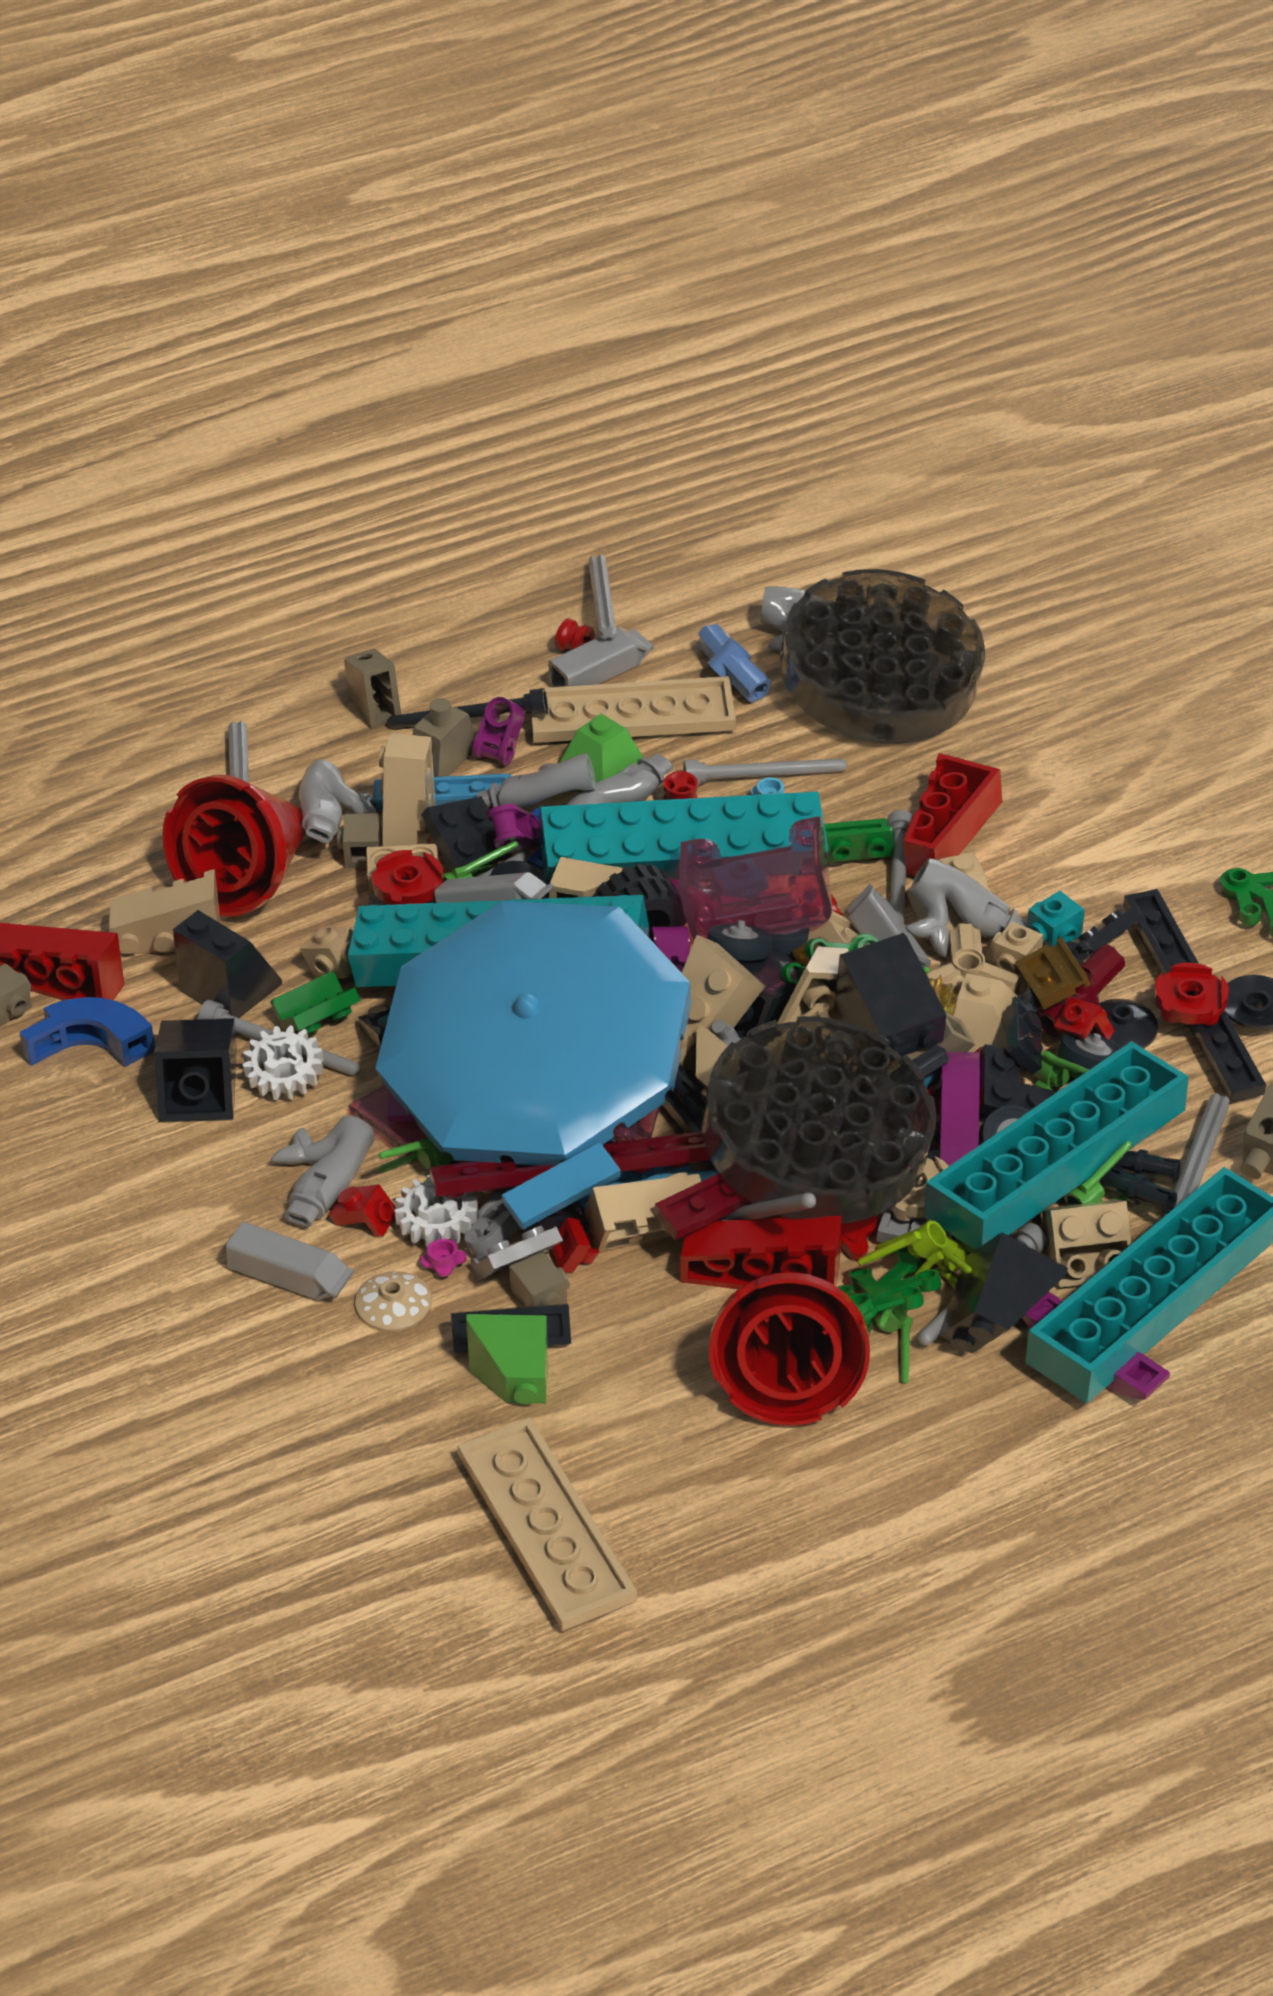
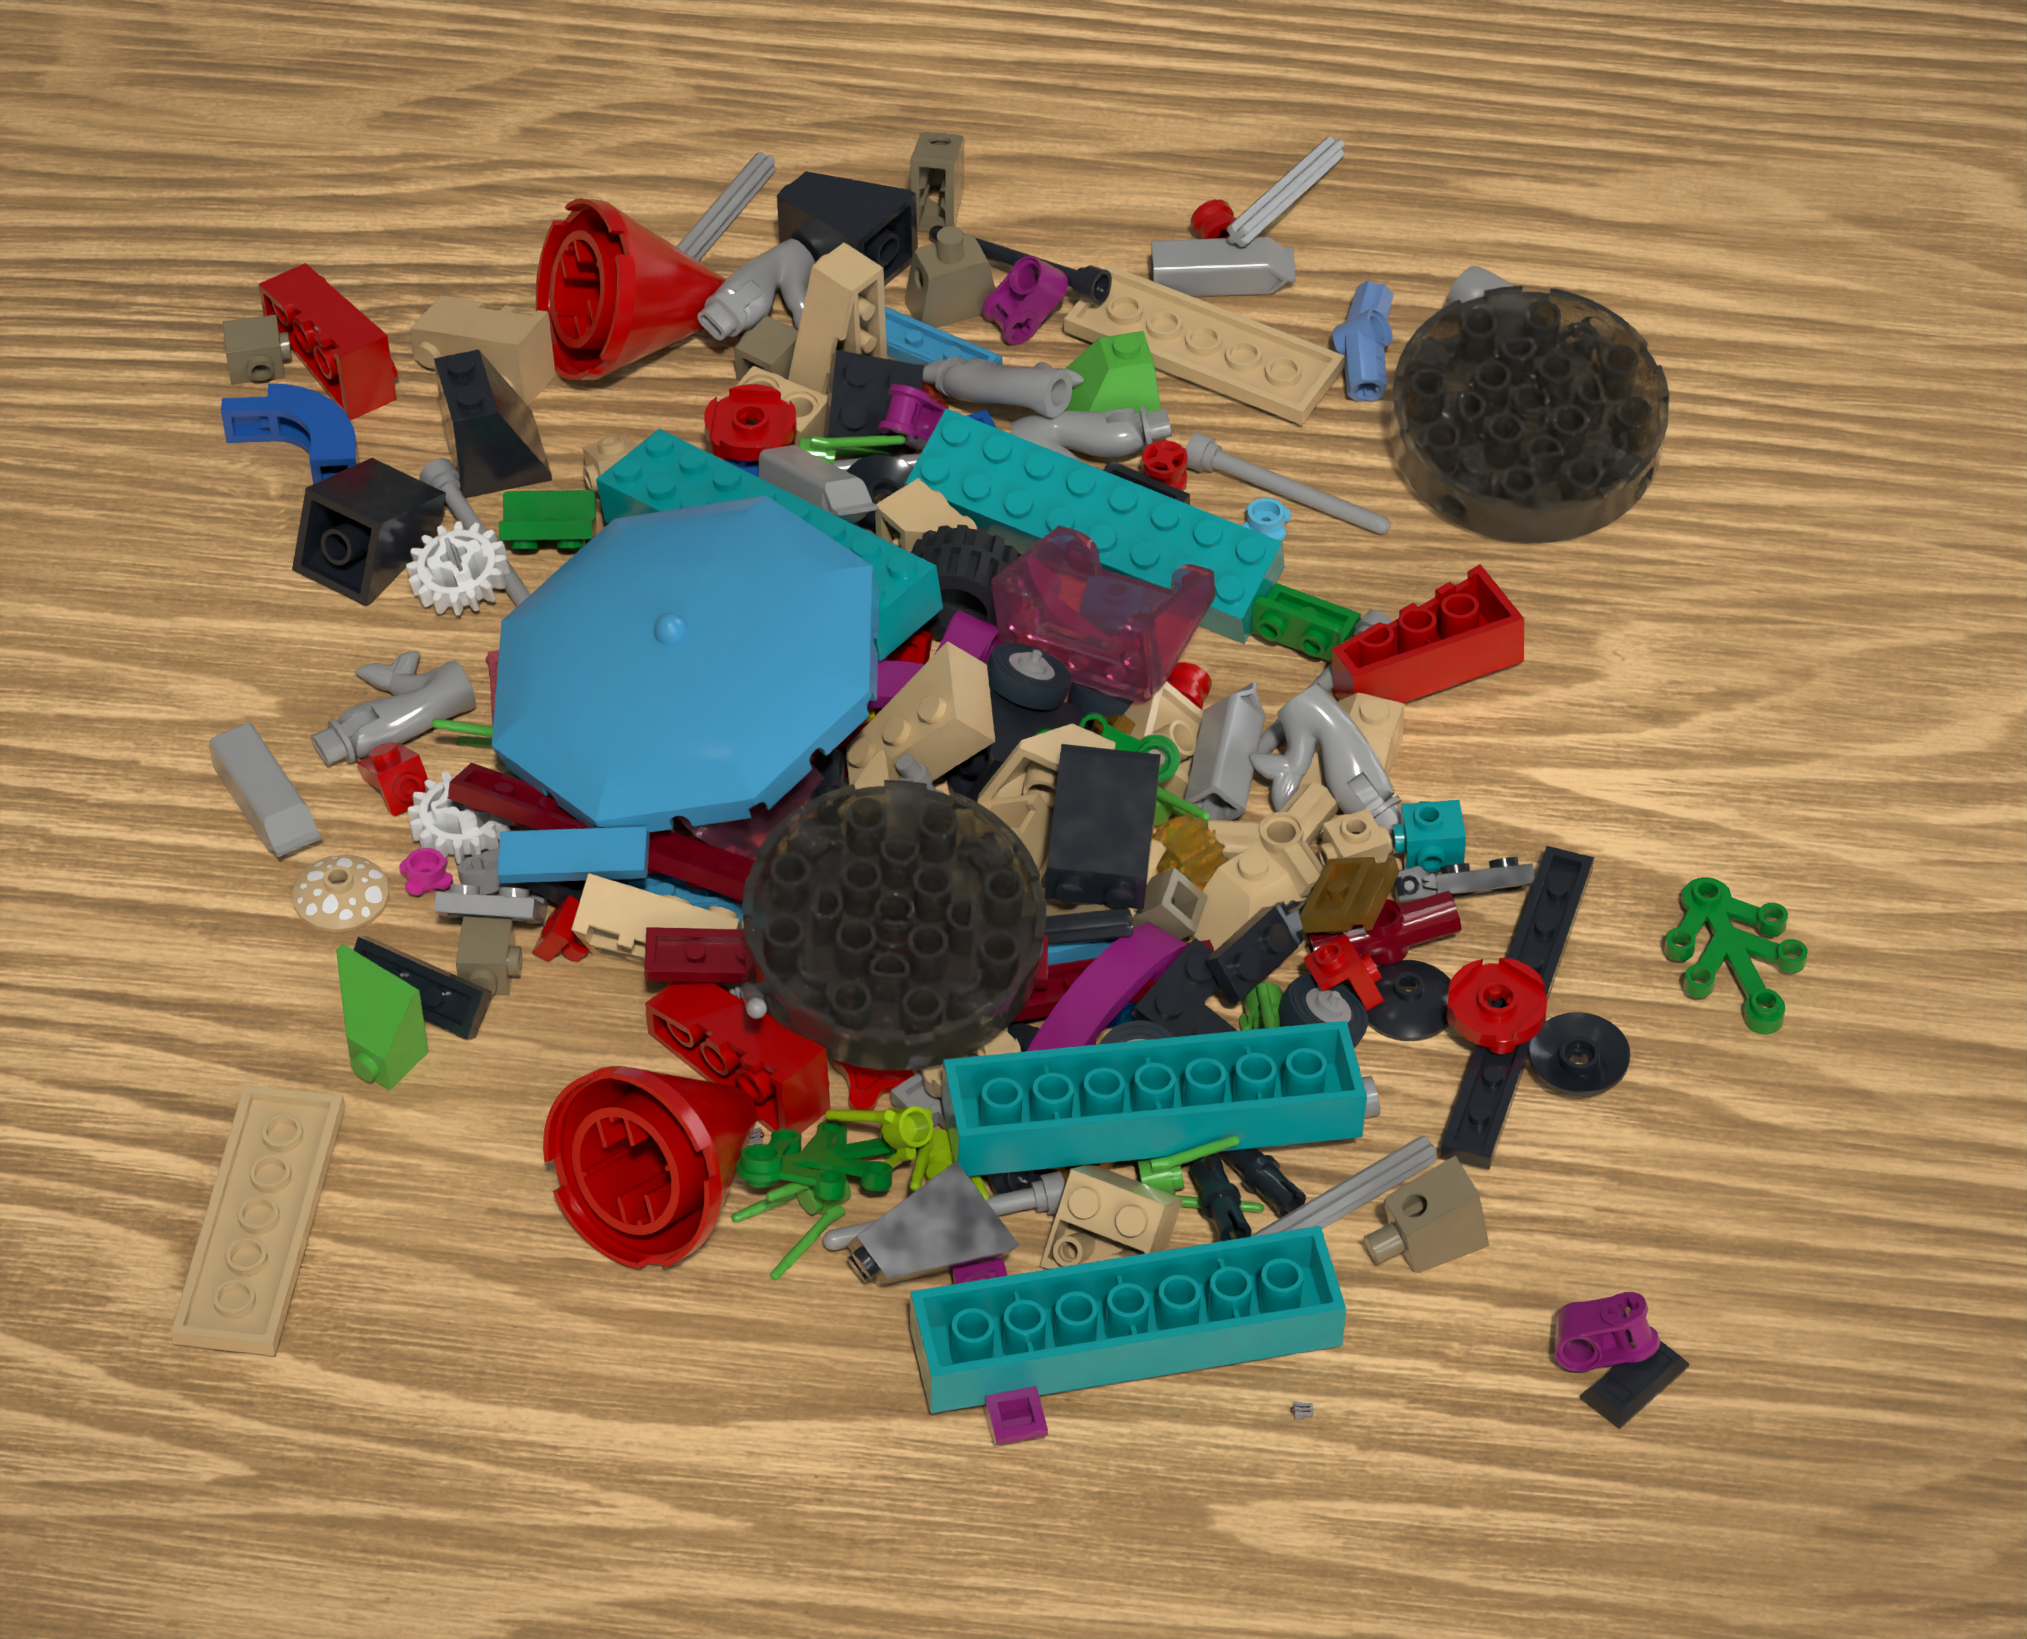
camera: 35 degrees right, 5 degrees up
(346, 736) = (866, 216): none -> black slope

